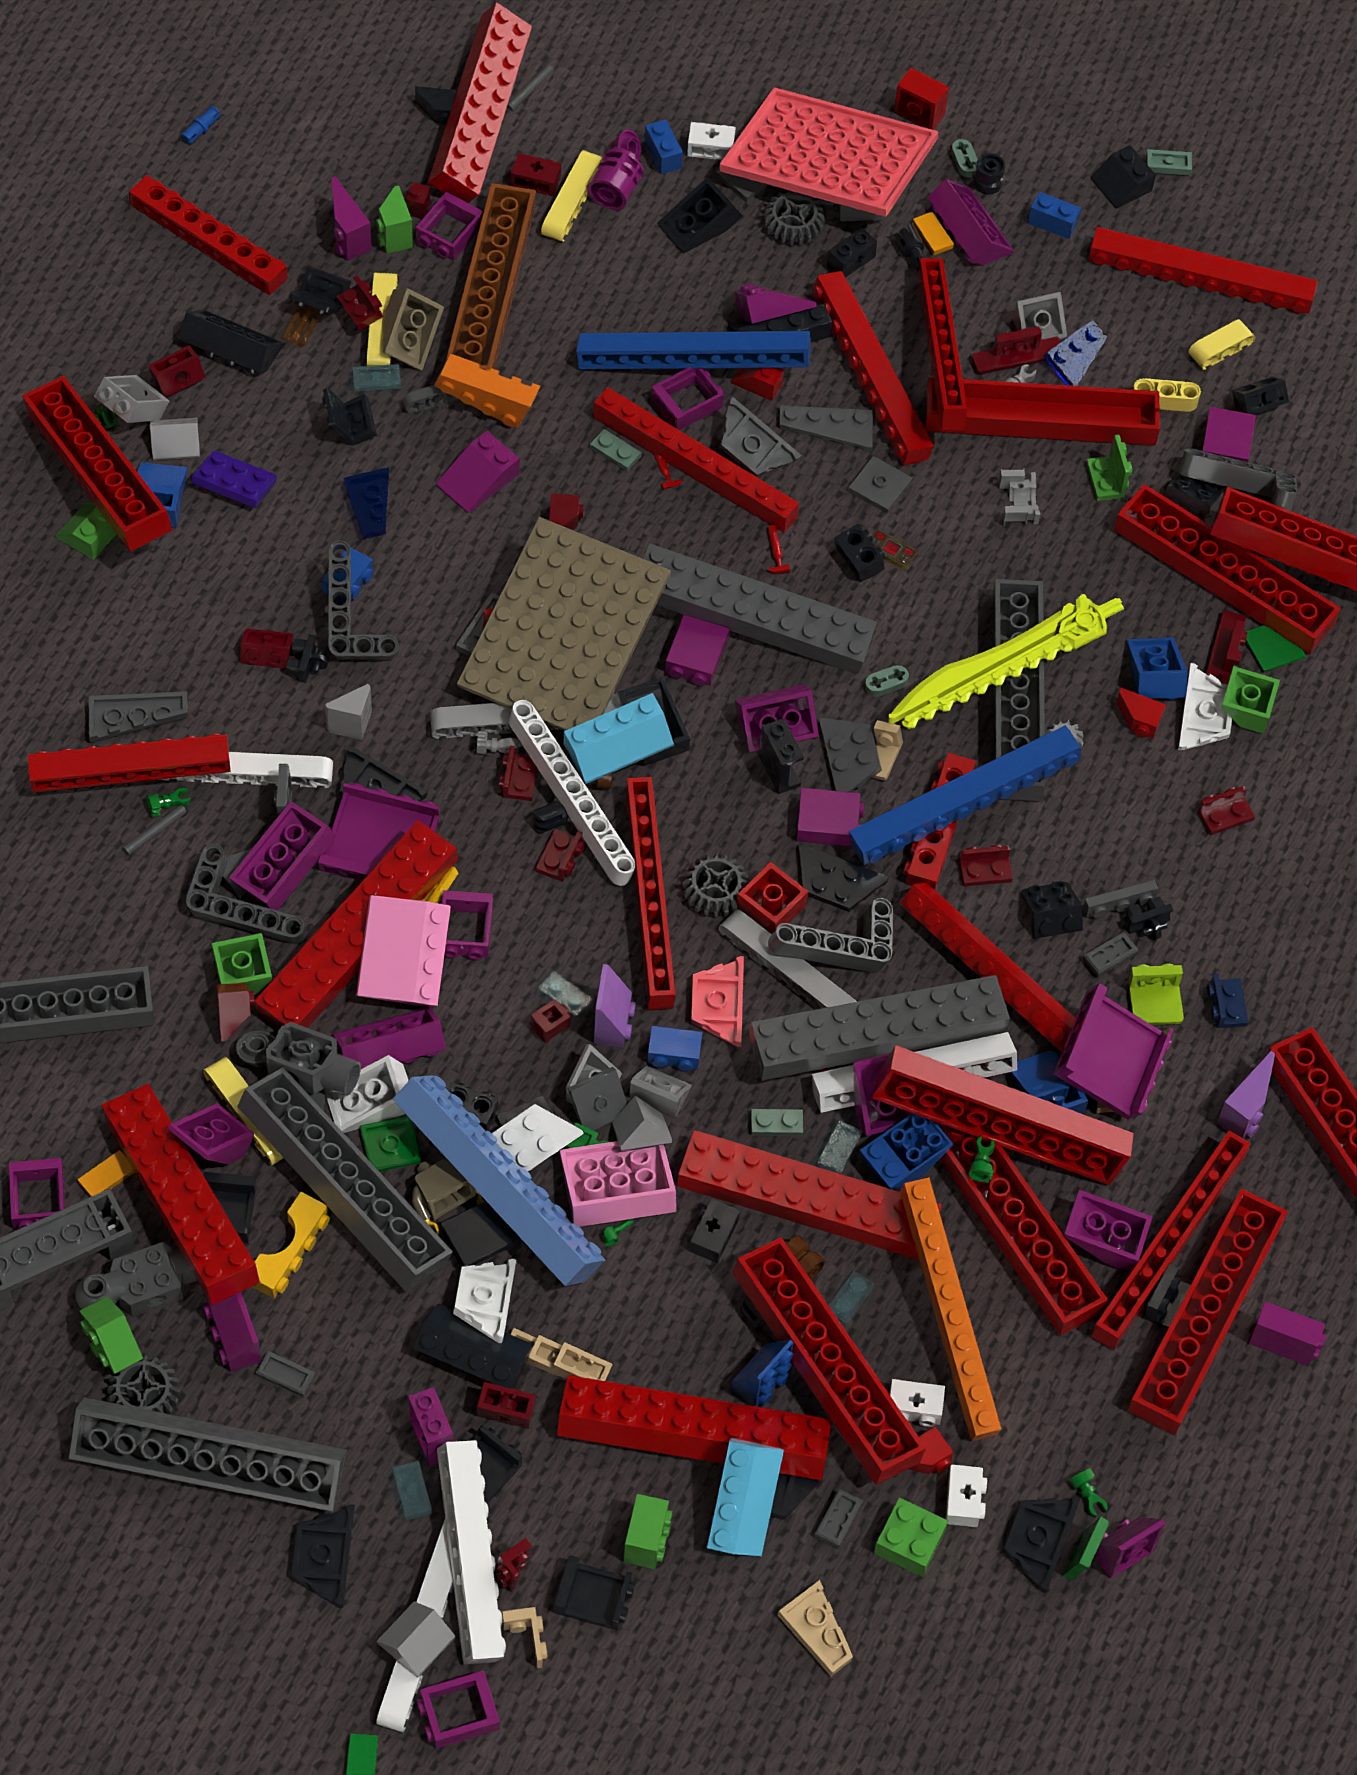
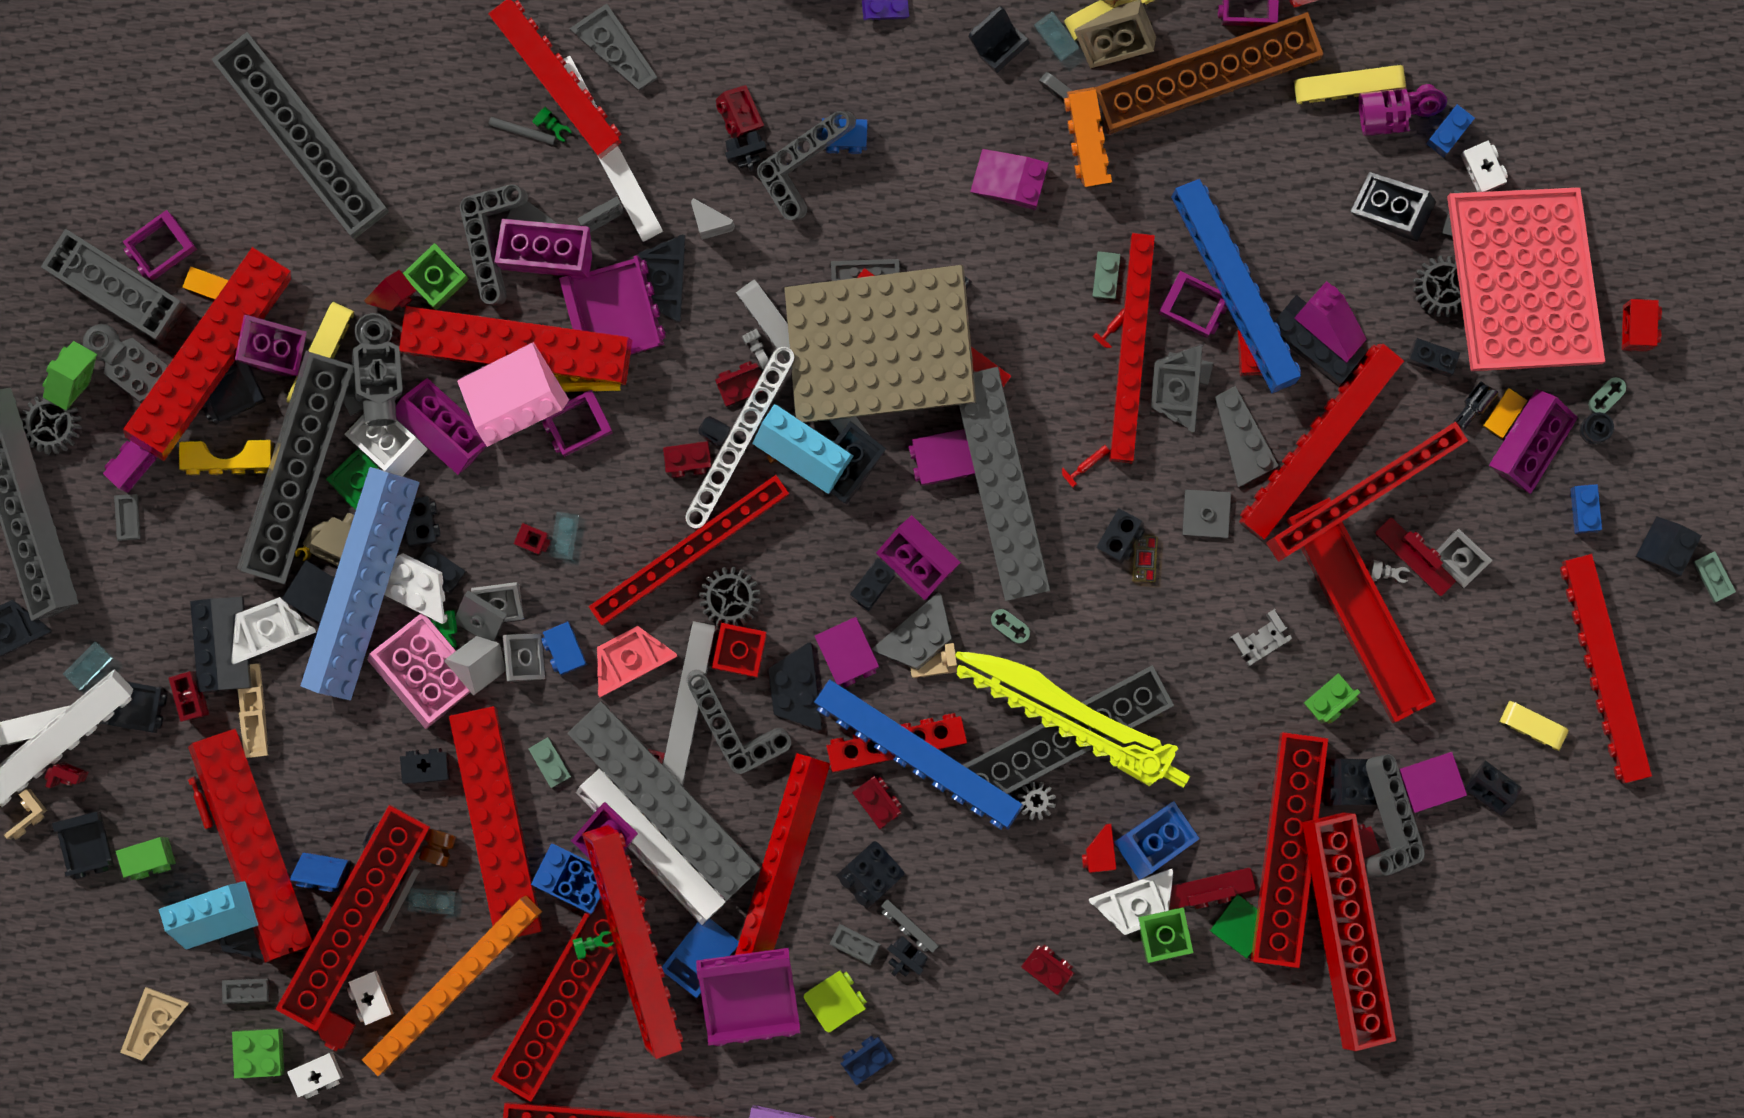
camera: 70 degrees right, 25 degrees up
(369, 500) = (929, 106): clear blue wing -> none
(429, 1422) = (140, 650): magenta window -> none
(536, 174) = (1349, 52): dark red brick -> none
(565, 510) = (1009, 272): dark red slope -> none
(610, 1233) = (378, 690): green hand -> none
(613, 1010) = (561, 584): medium lavender slope -> none
(620, 1458) = (201, 805): none -> red piece
(839, 1147) = (554, 823): clear light blue plate -> none
(1076, 353) = (1446, 606): clear blue wing -> none
(1108, 1230) = (595, 1070): magenta slope -> none
(1172, 394) = (1455, 714): light yellow beam -> none

